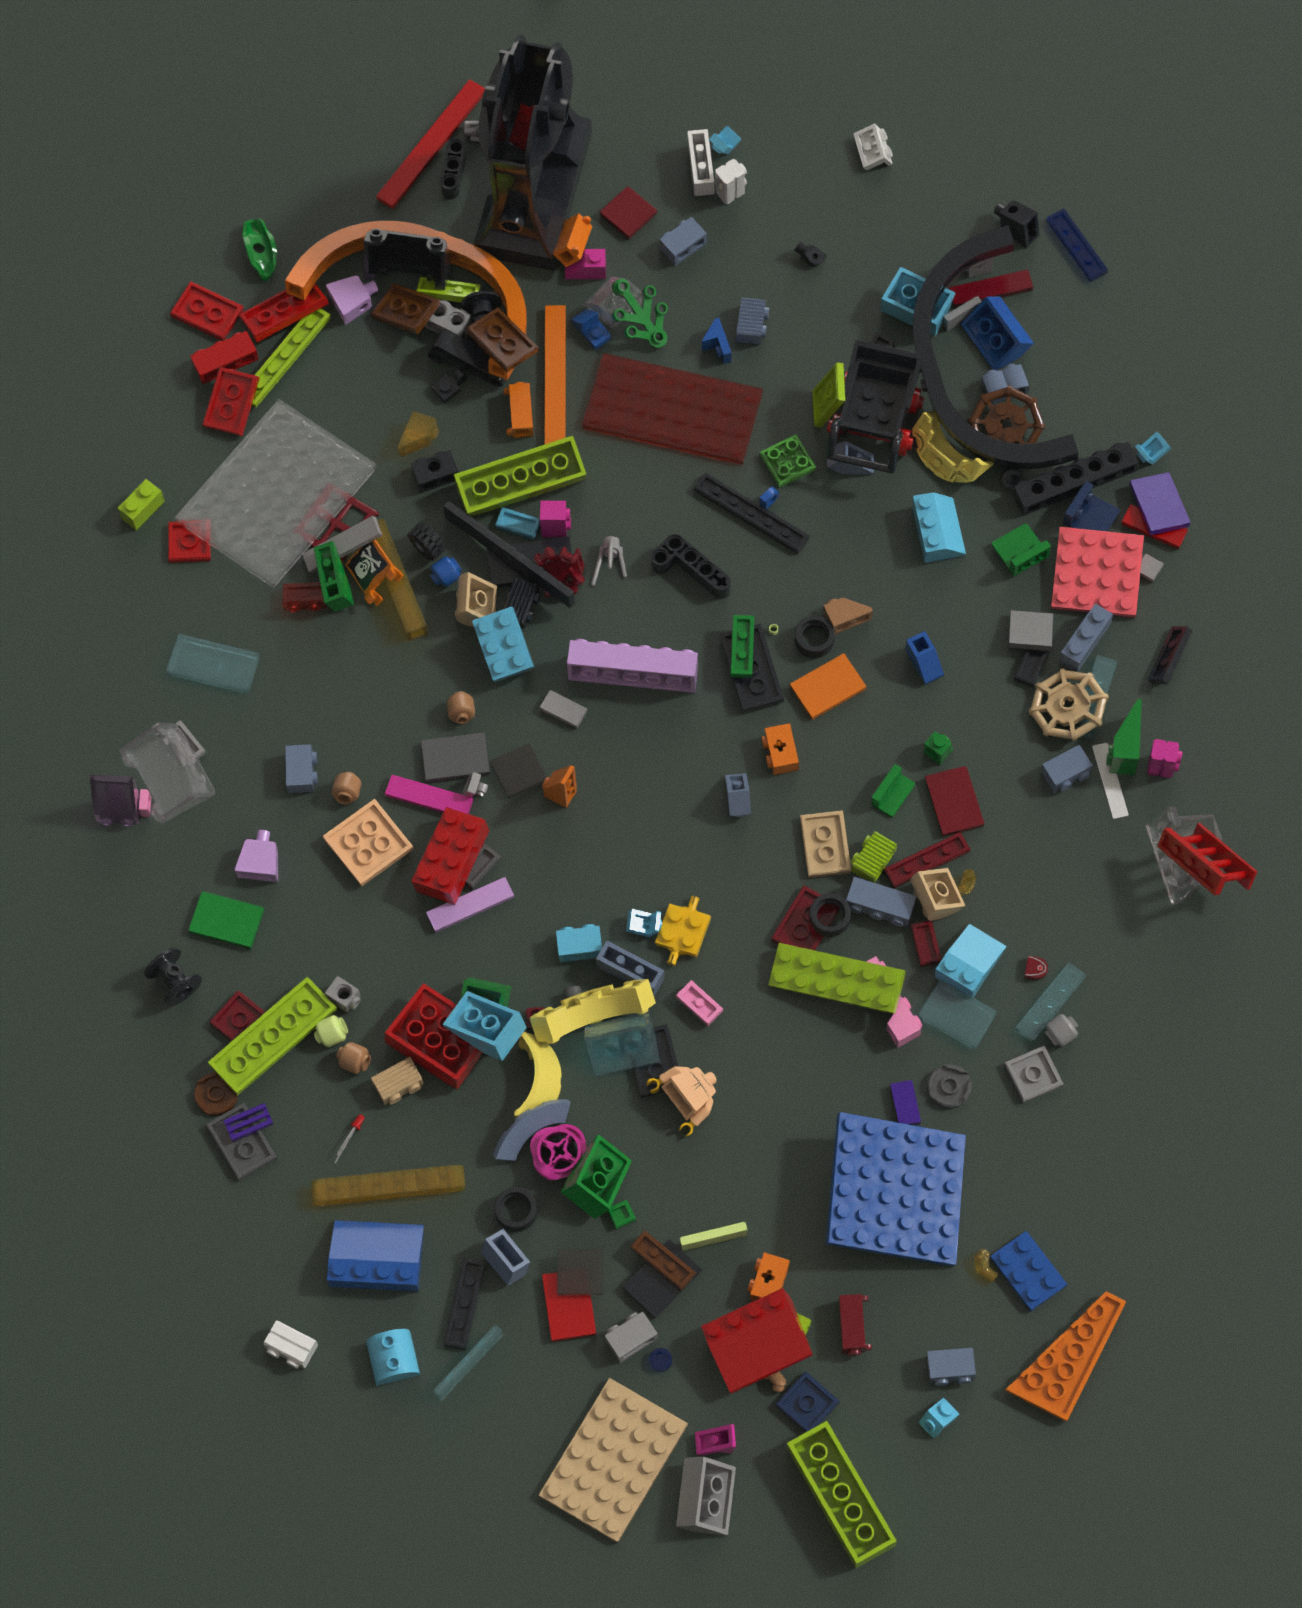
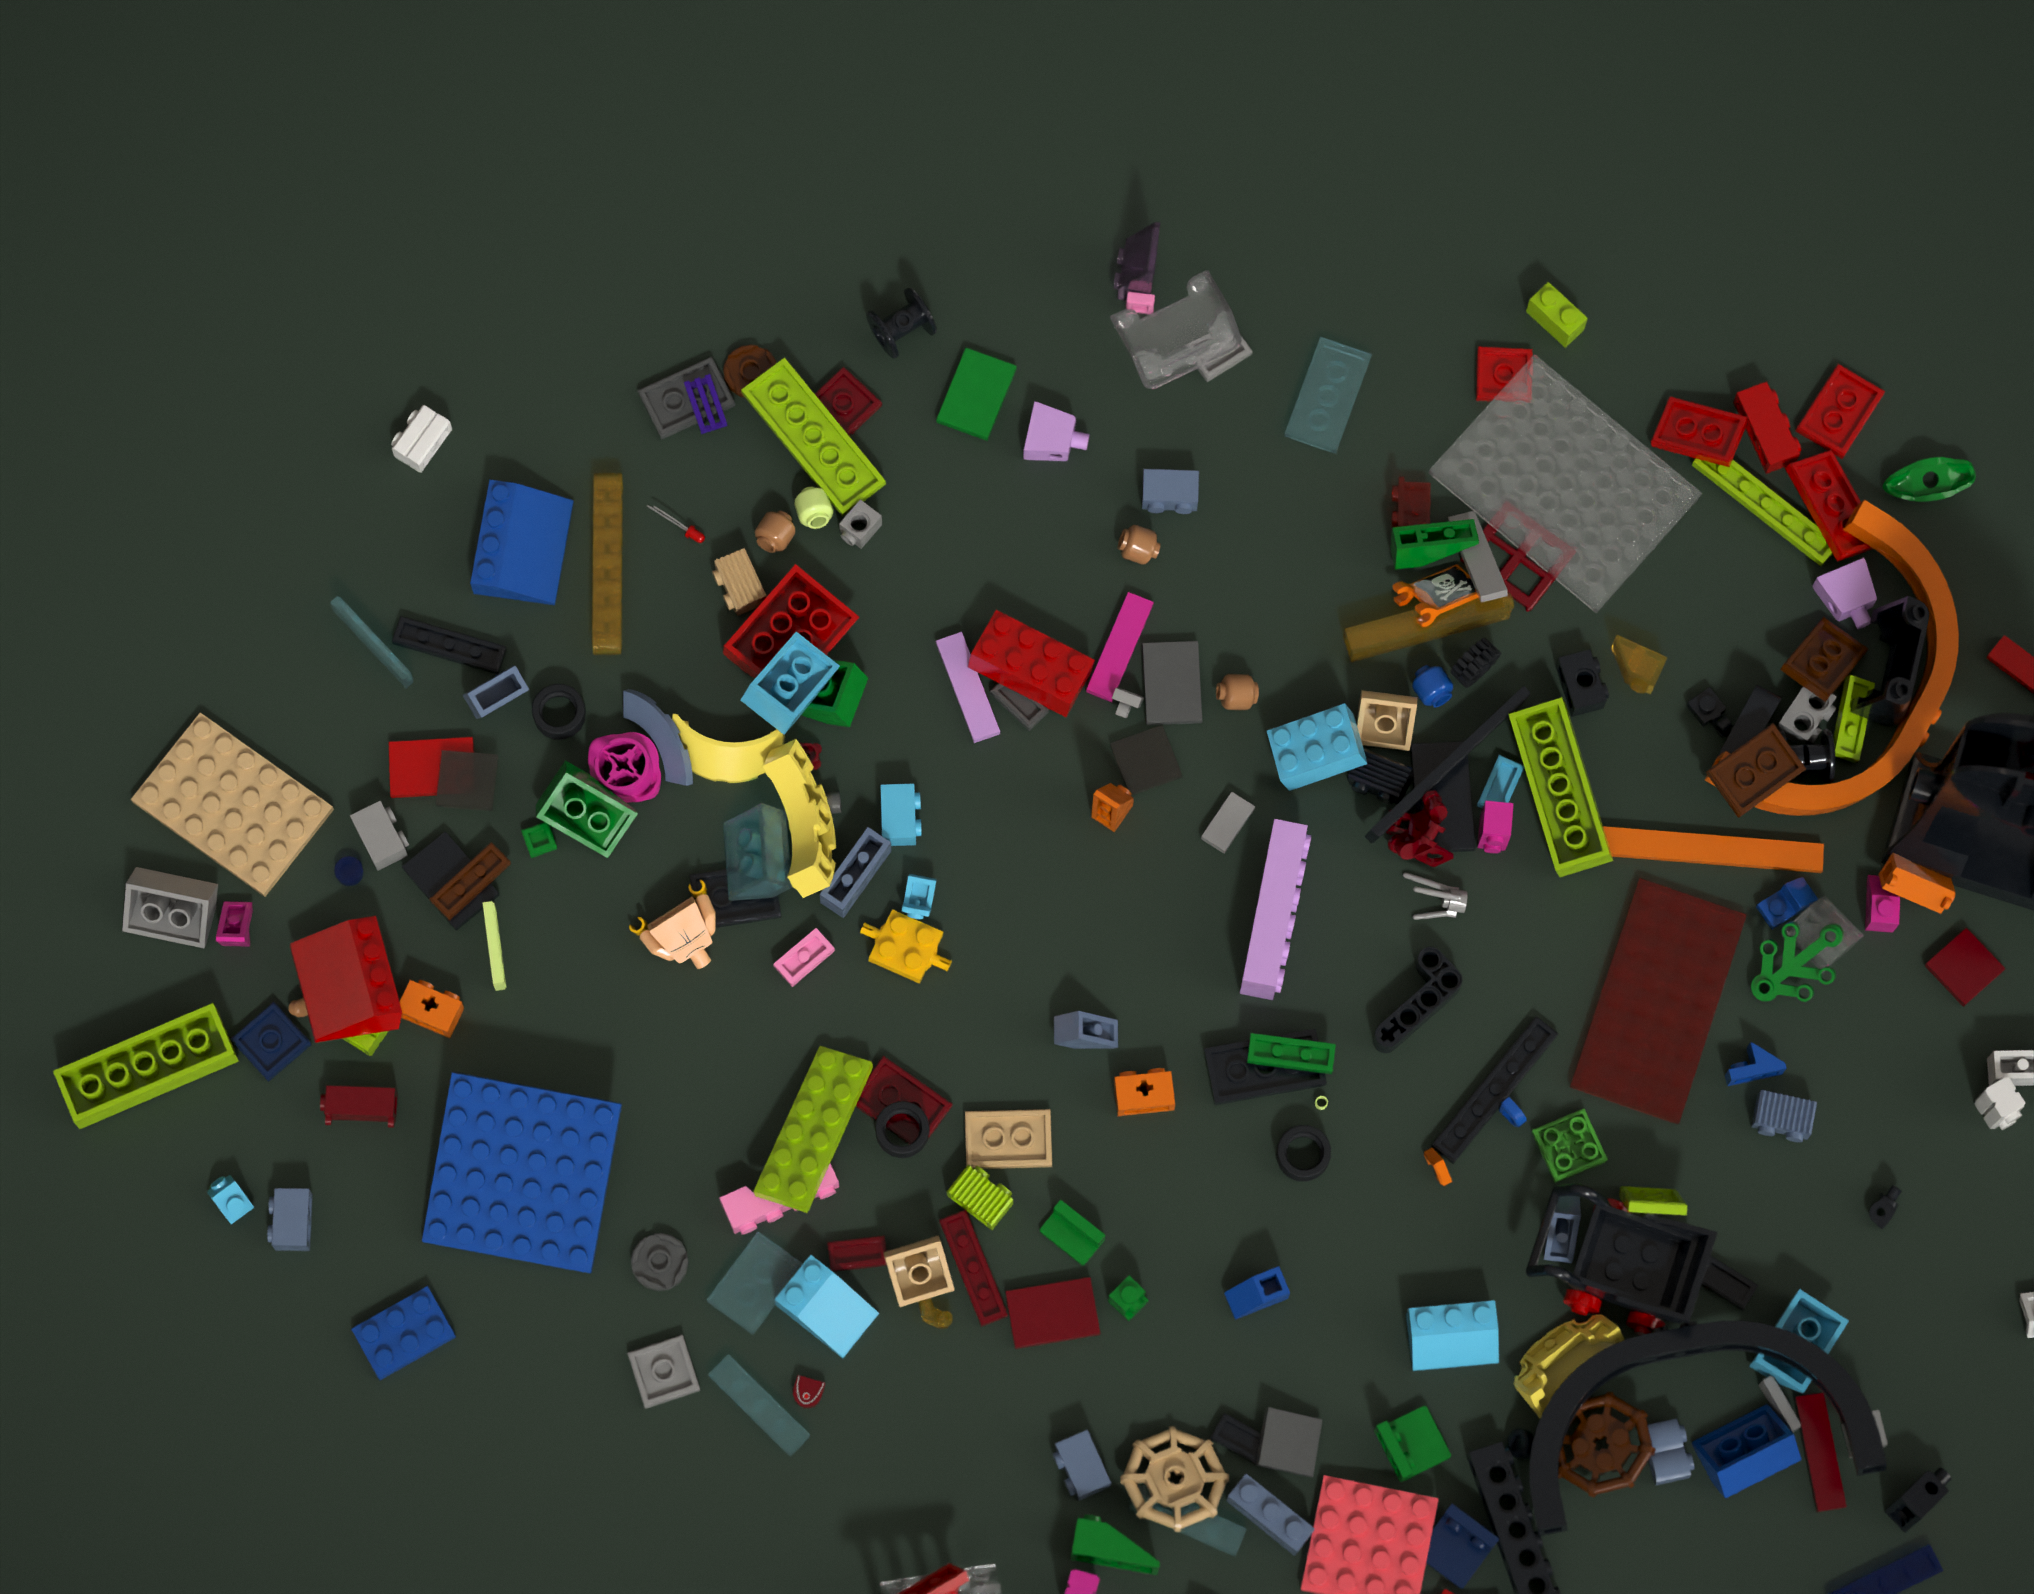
camera: 90 degrees right, 5 degrees up
(368, 842) = (1062, 567): light nougat plate -> none
(392, 1356) = (392, 557): medium azure brick -> none
(520, 410) = (1665, 799): orange brick -> none
(683, 241) = (1914, 1034): sand blue brick -> none
(812, 544) = (1439, 1166): none -> orange tile
(828, 686) = (1231, 1165): orange tile -> none
(846, 614) = (1331, 1194): medium nougat slope -> none
(881, 902) = (916, 1198): sand blue brick -> none
(905, 1103) = (642, 1203): dark purple tile -> none
(982, 1265) = (417, 1275): clear yellow arm -> none
(1061, 1030) = (716, 1412): light grey head -> none
(1065, 1366) = (270, 1360): orange wing -> none
(1110, 783) = (1058, 1526): white sticker -> none

